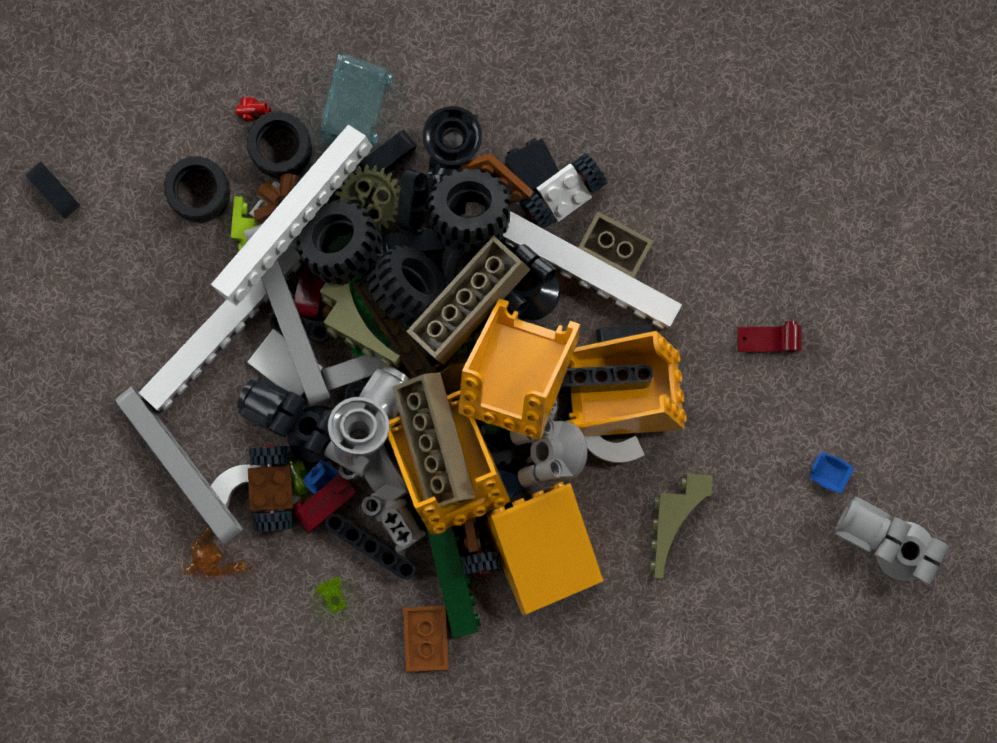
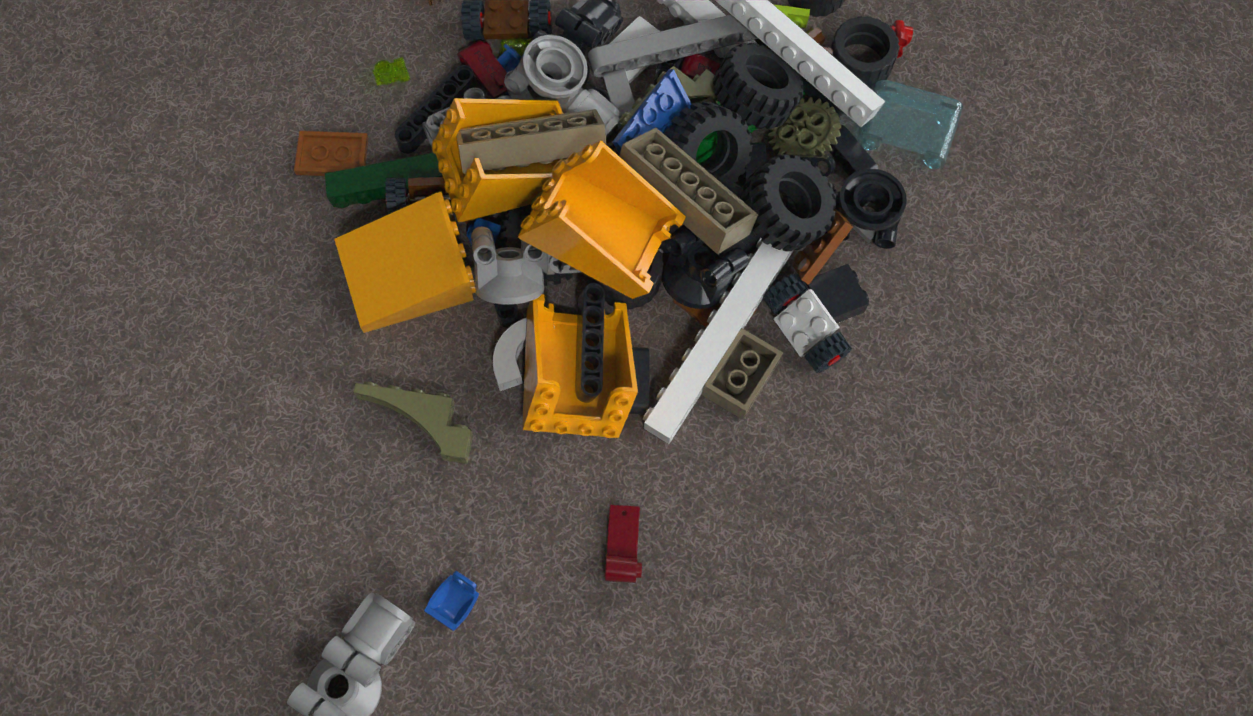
camera: 90 degrees right, 15 degrees down
(388, 334) = (657, 110): none -> blue wing

